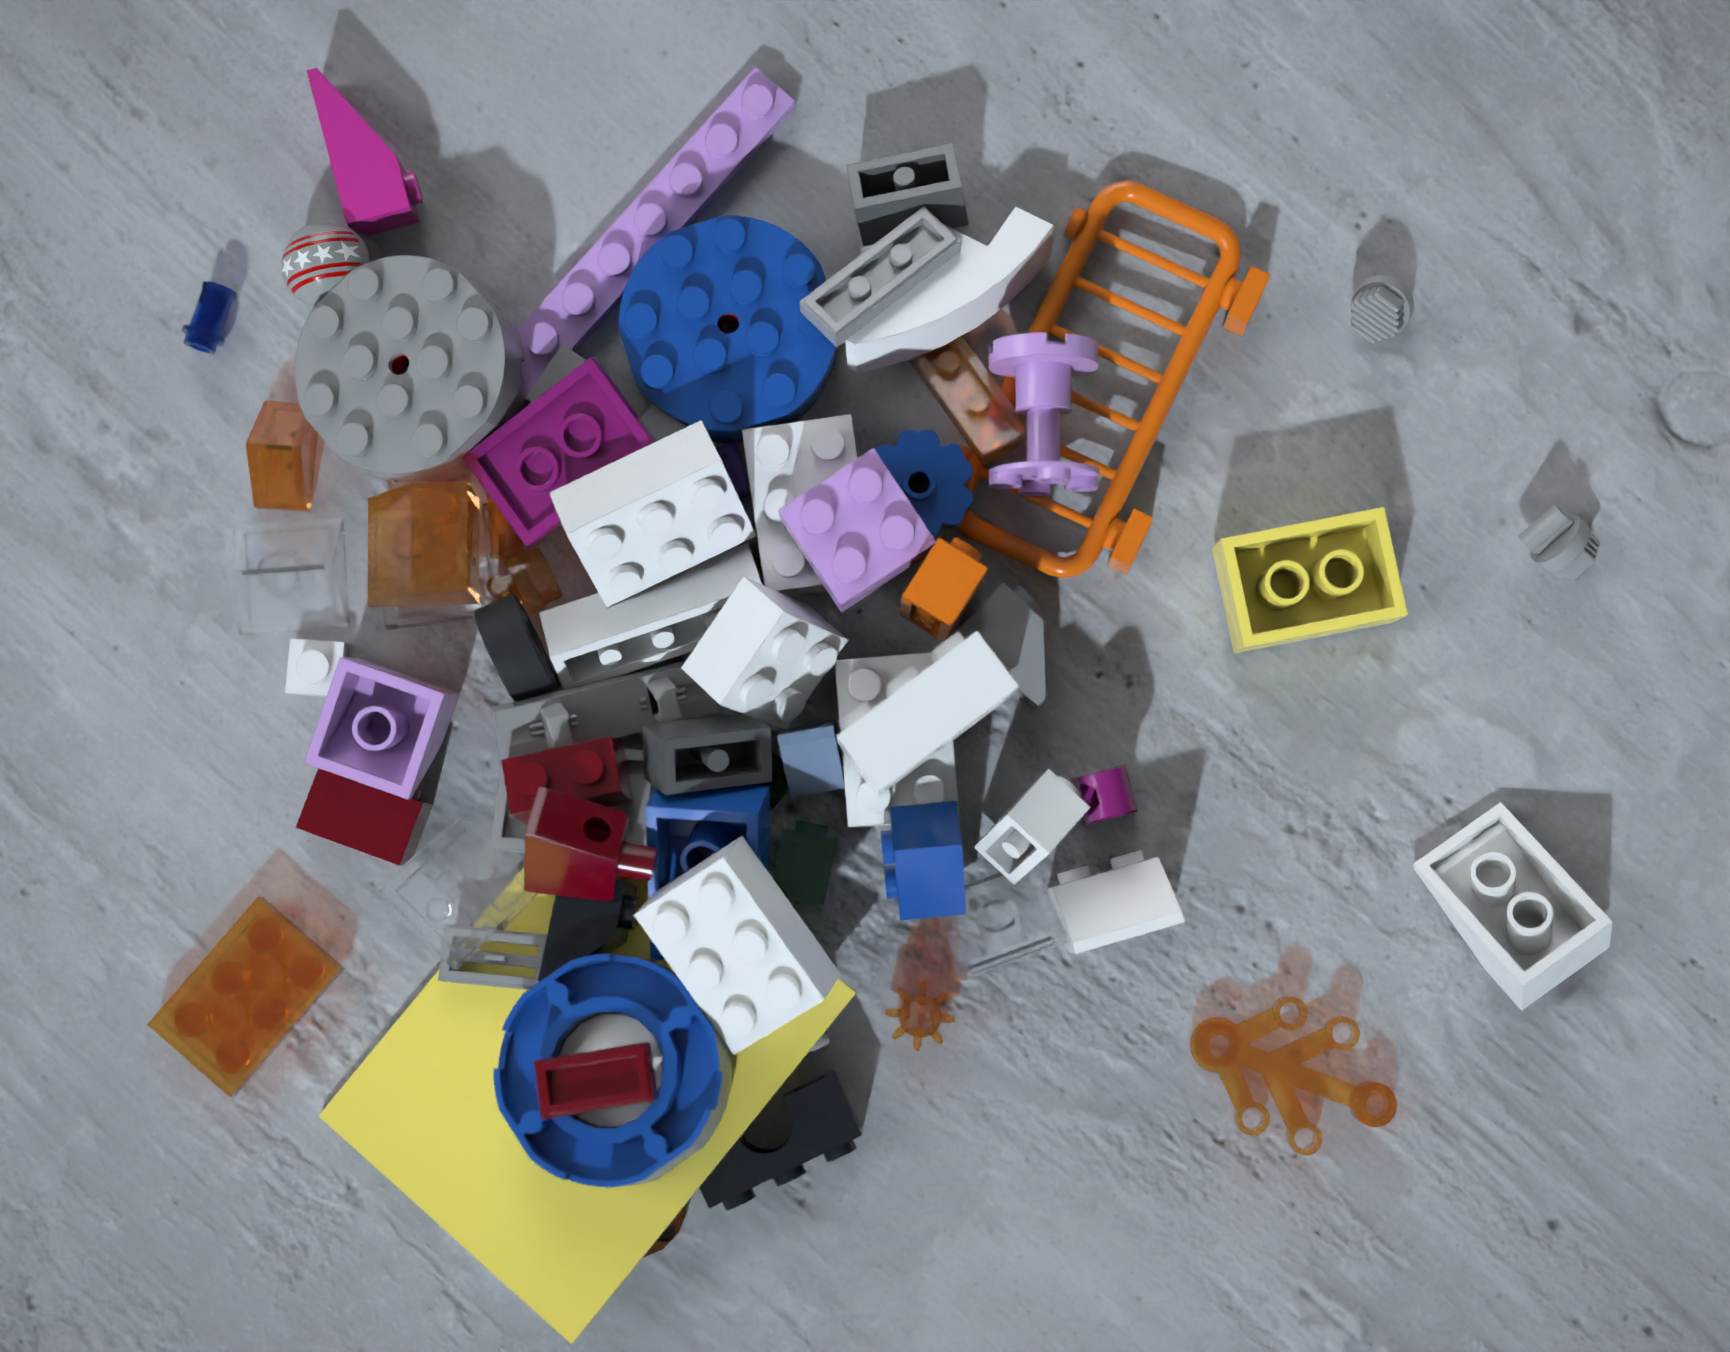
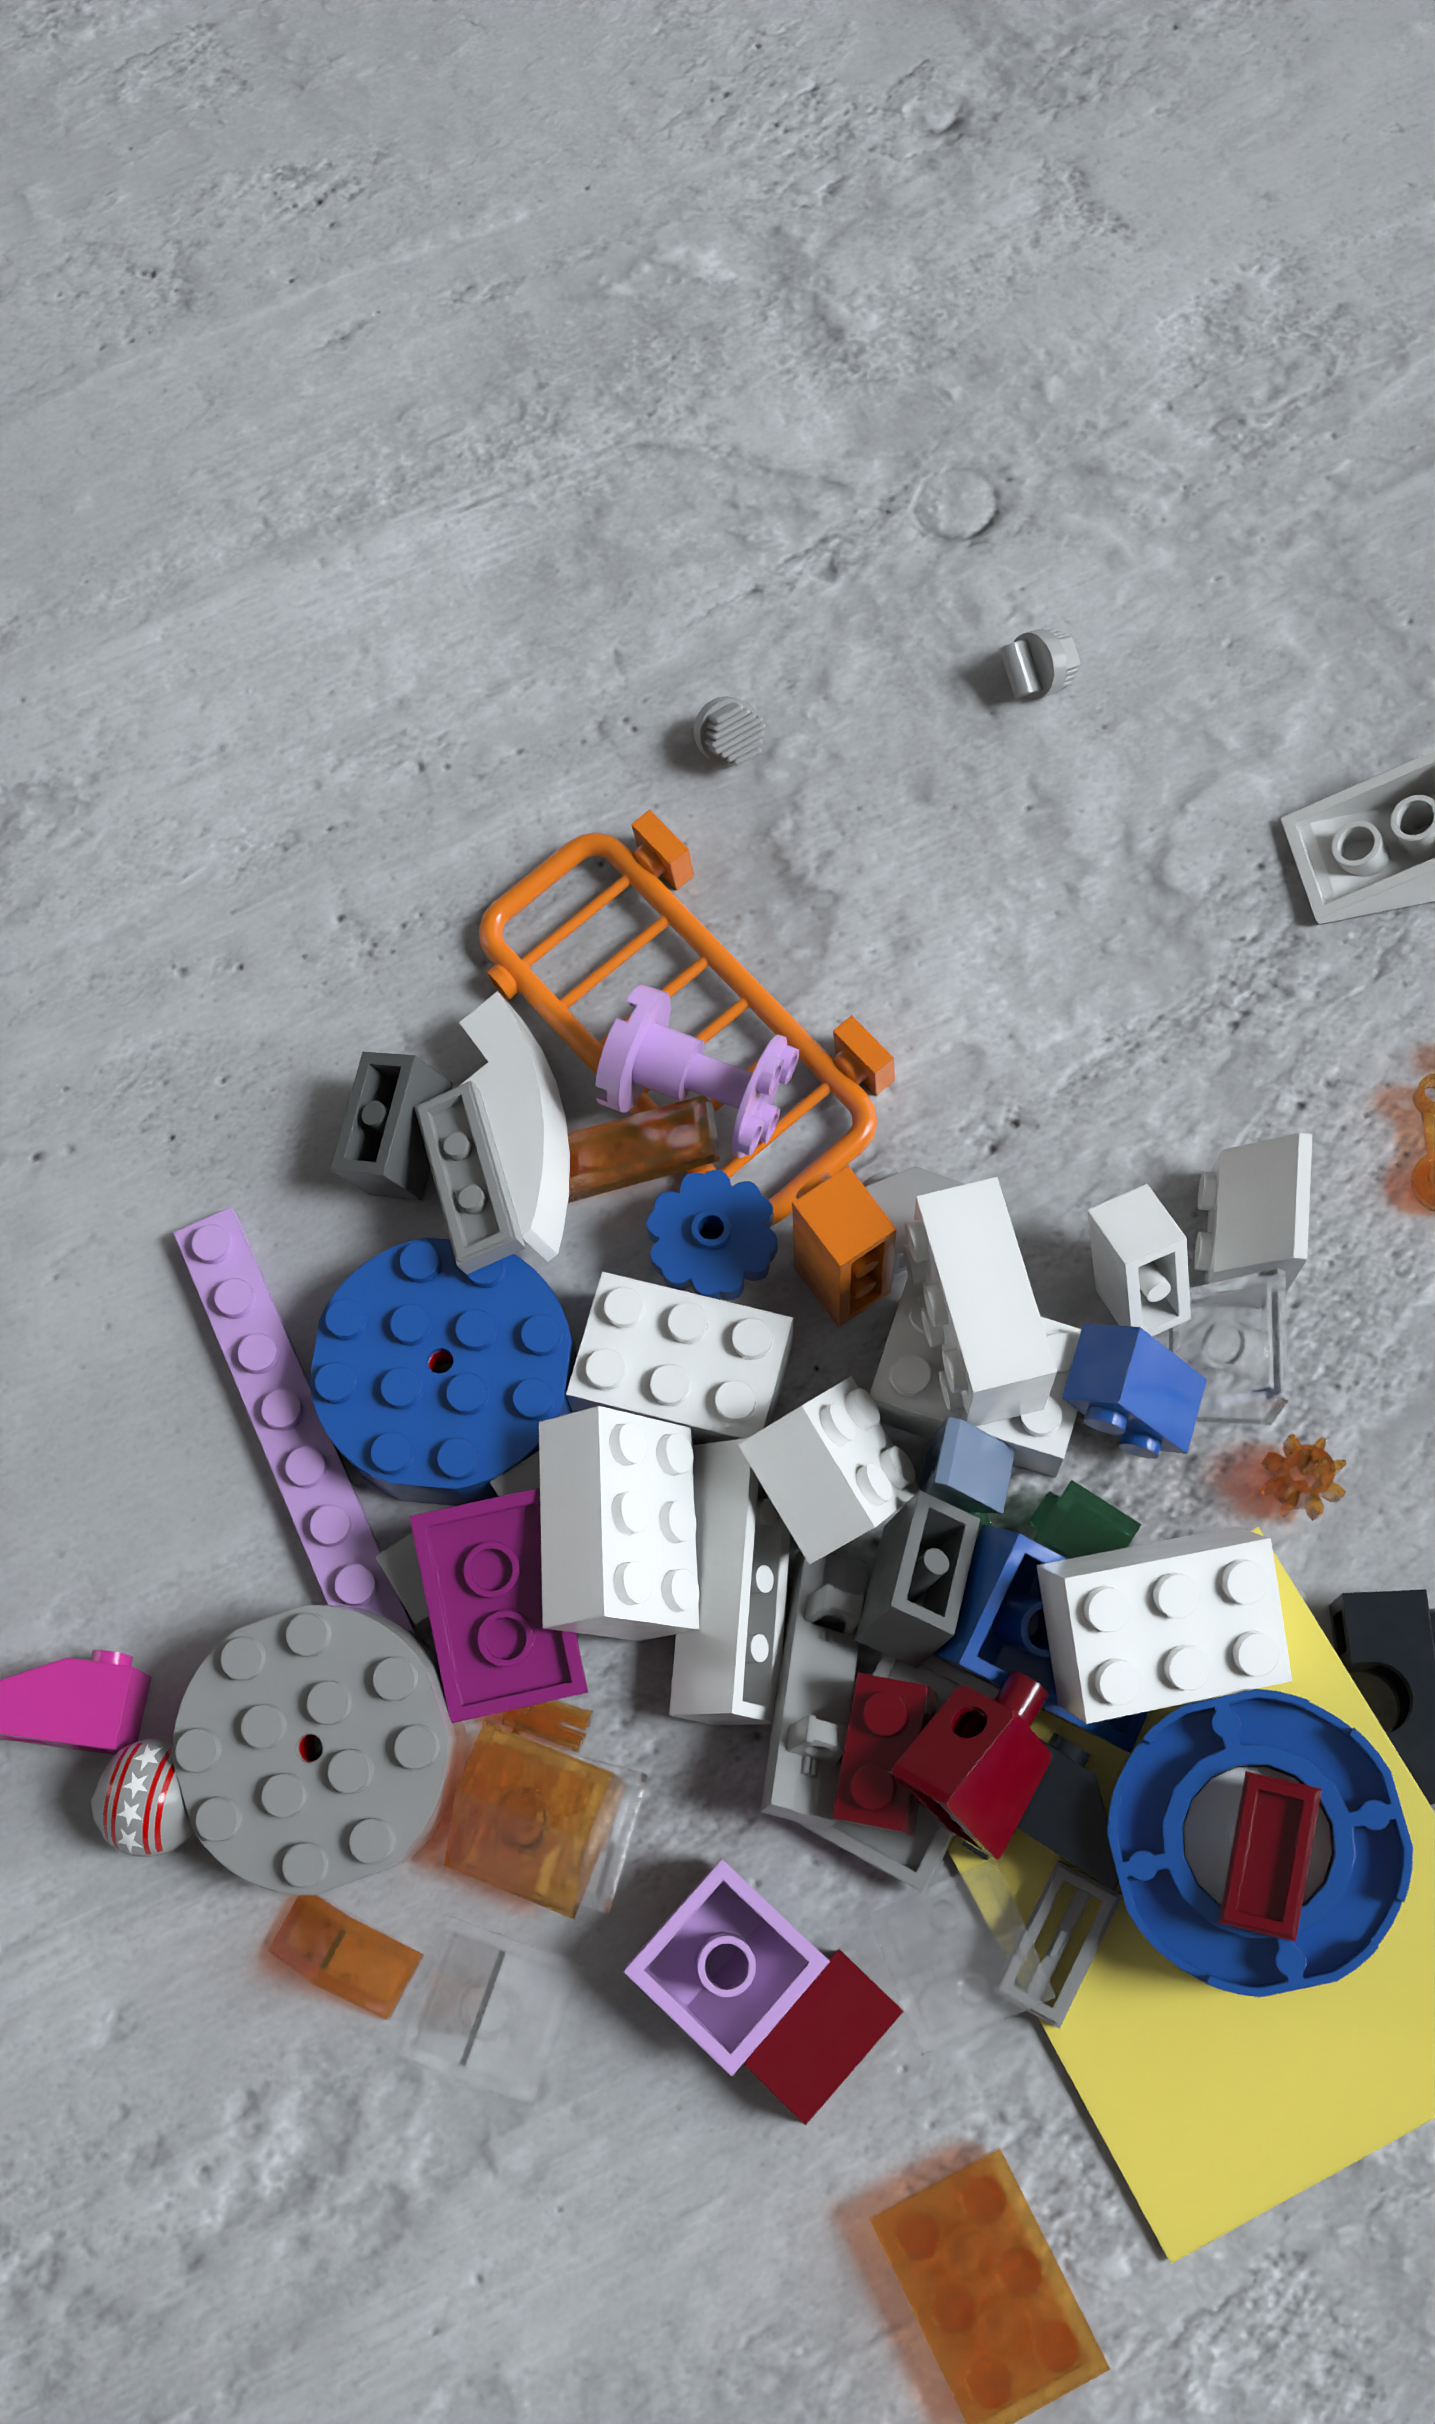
camera: 60 degrees left, 15 degrees down
(209, 318) = (138, 1975): clear blue pin -> none
(312, 666) = (615, 2024): white plate -> none
(515, 648) = (701, 1757): black tyre -> none
(528, 580) = (626, 1717): clear orange piece -> none
(857, 530) = (740, 1302): lavender brick -> none
(1106, 793) = (1129, 1166): magenta leg -> none
(1309, 580) = (981, 897): light yellow brick -> none

